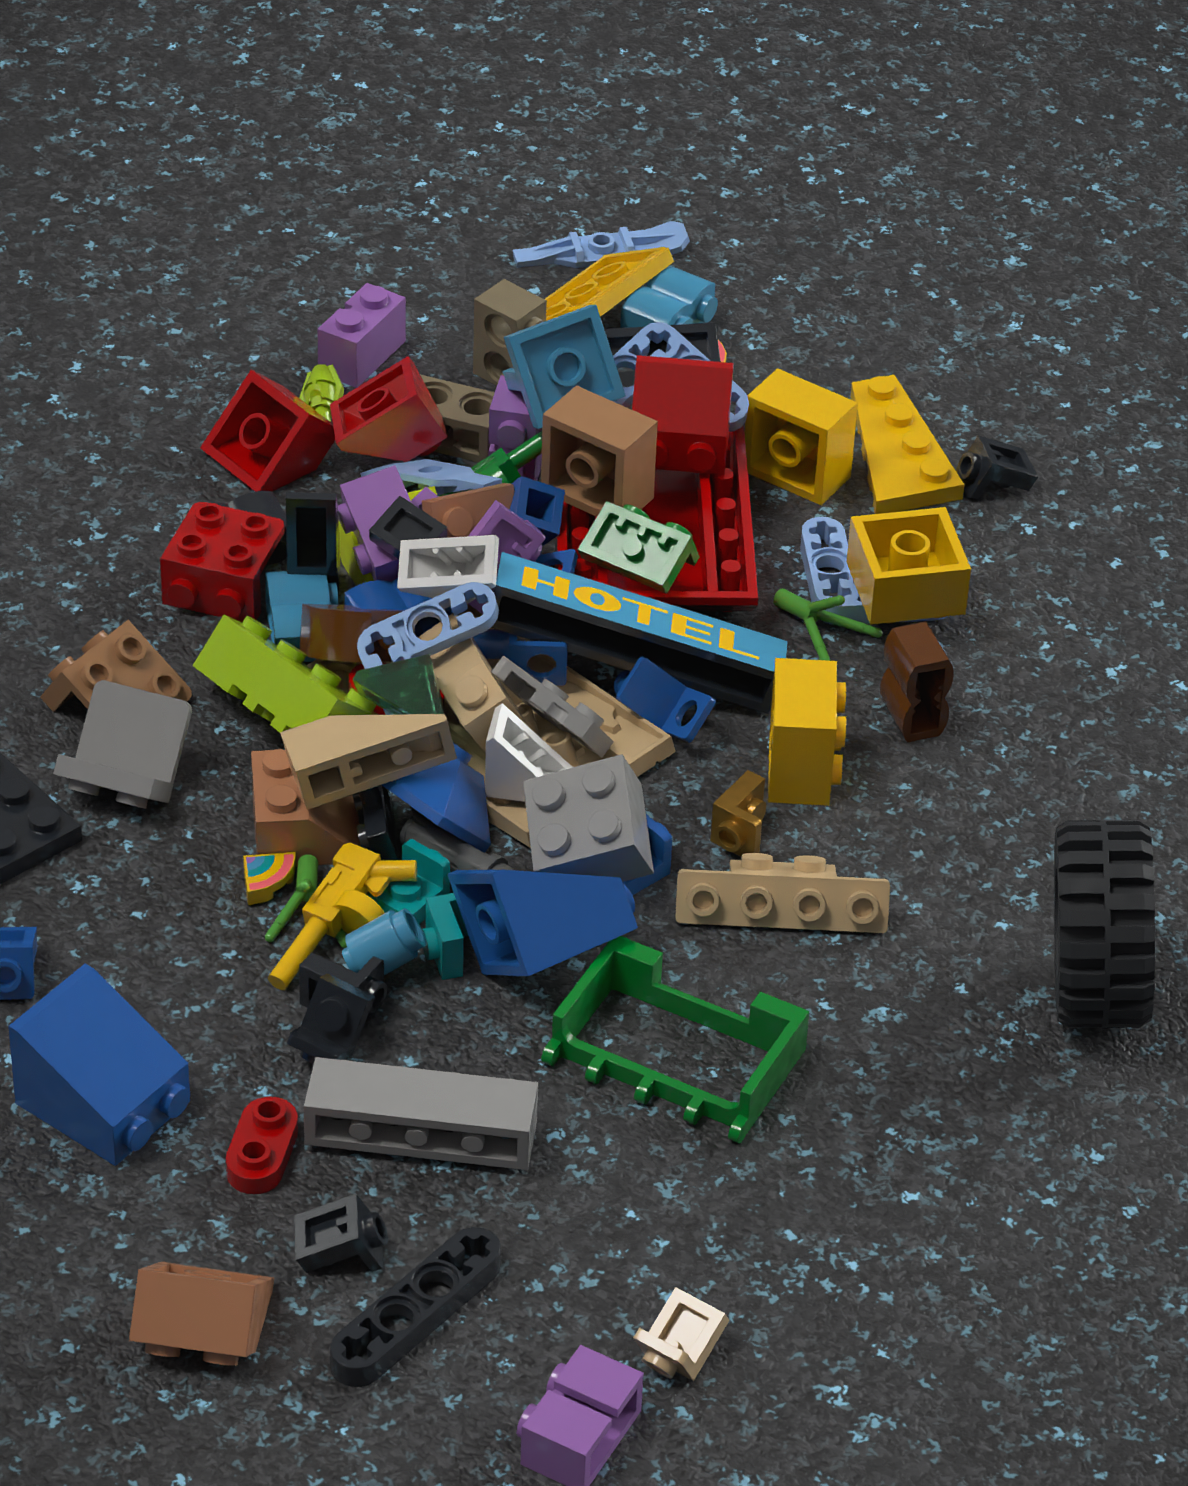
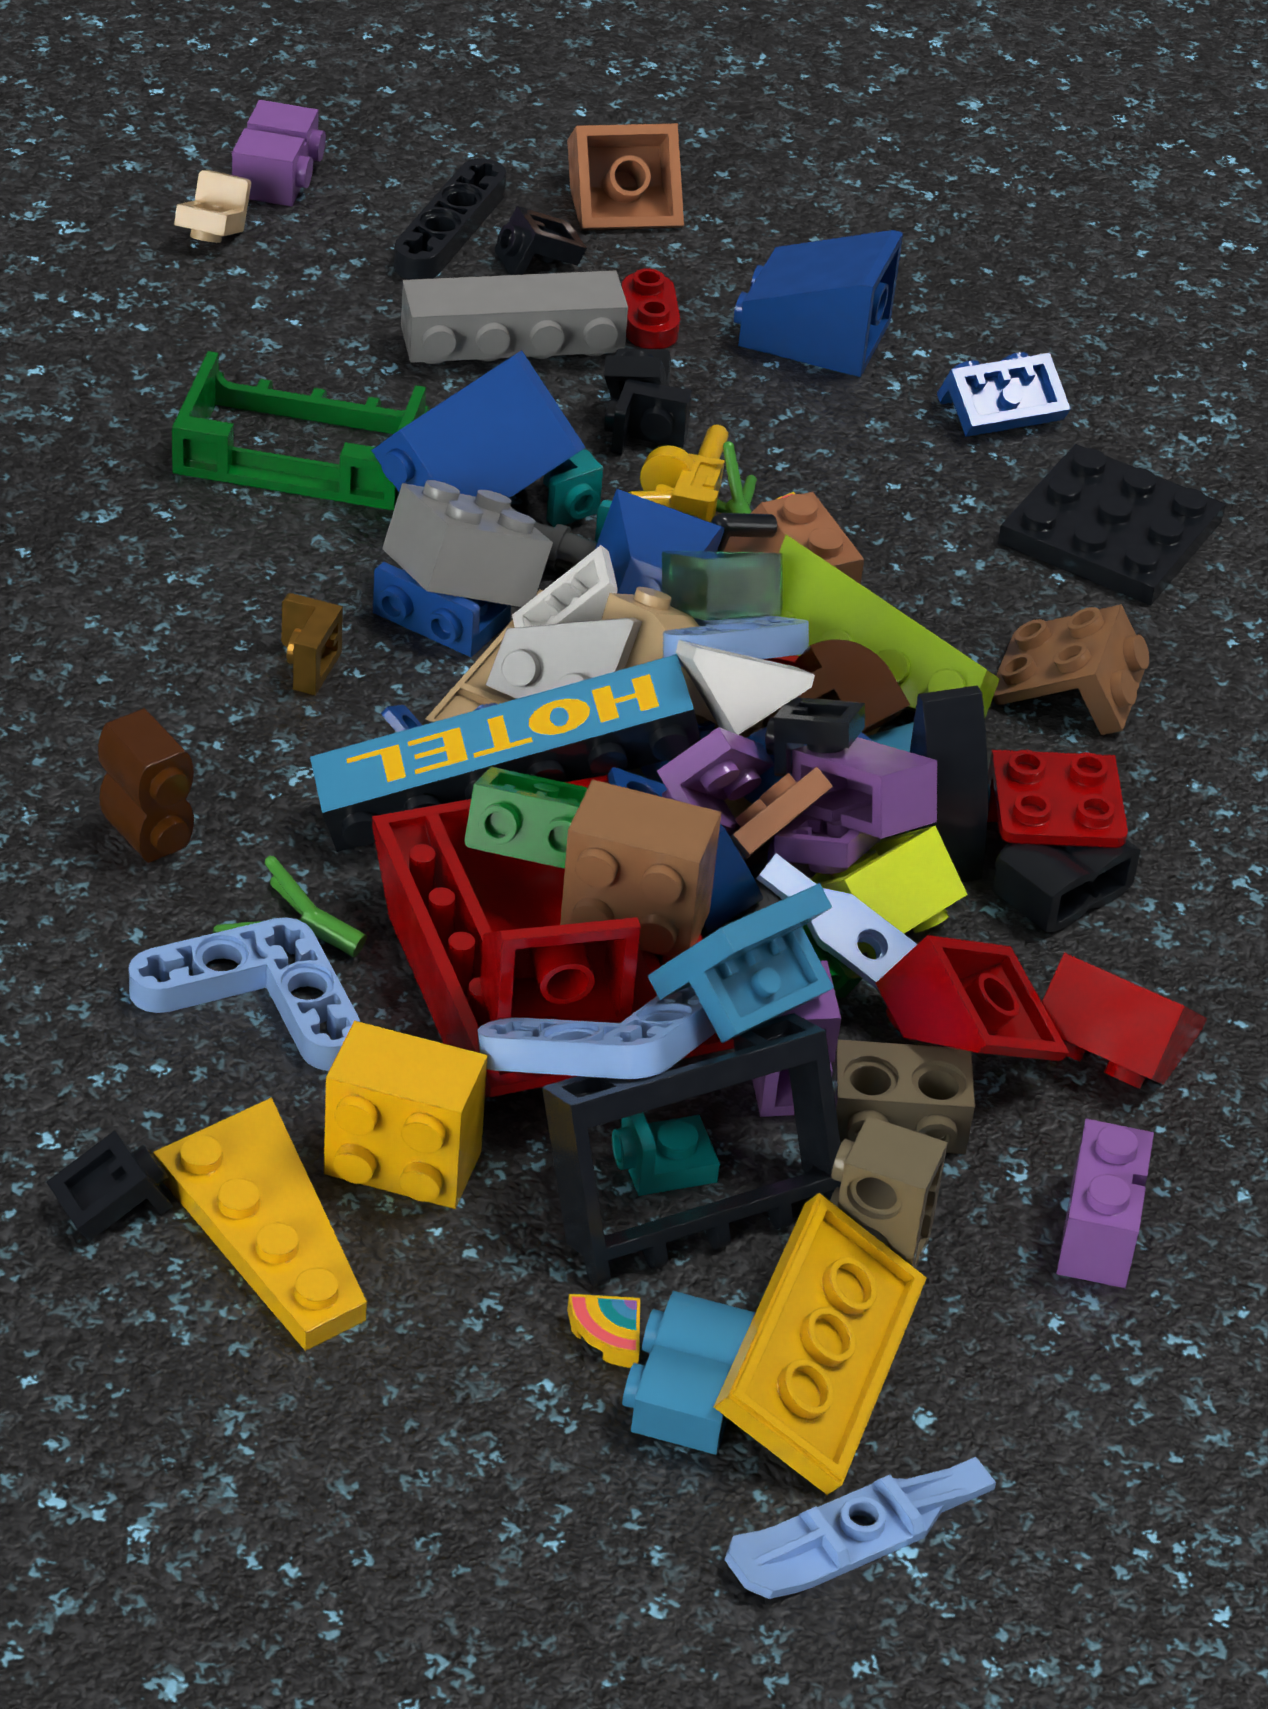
camera: 160 degrees right, 0 degrees up
(128, 744) = (1000, 562): light grey bracket -> none
(321, 389) = (1093, 1100): lime piece -> none
(363, 751) = (730, 495): tan slope -> none
(389, 937) = (622, 441): dark azure brick -> none
(782, 896) = (236, 583): tan bracket -> none
(805, 731) = (264, 701): yellow brick -> none
(908, 565) = (194, 911): yellow brick -> none

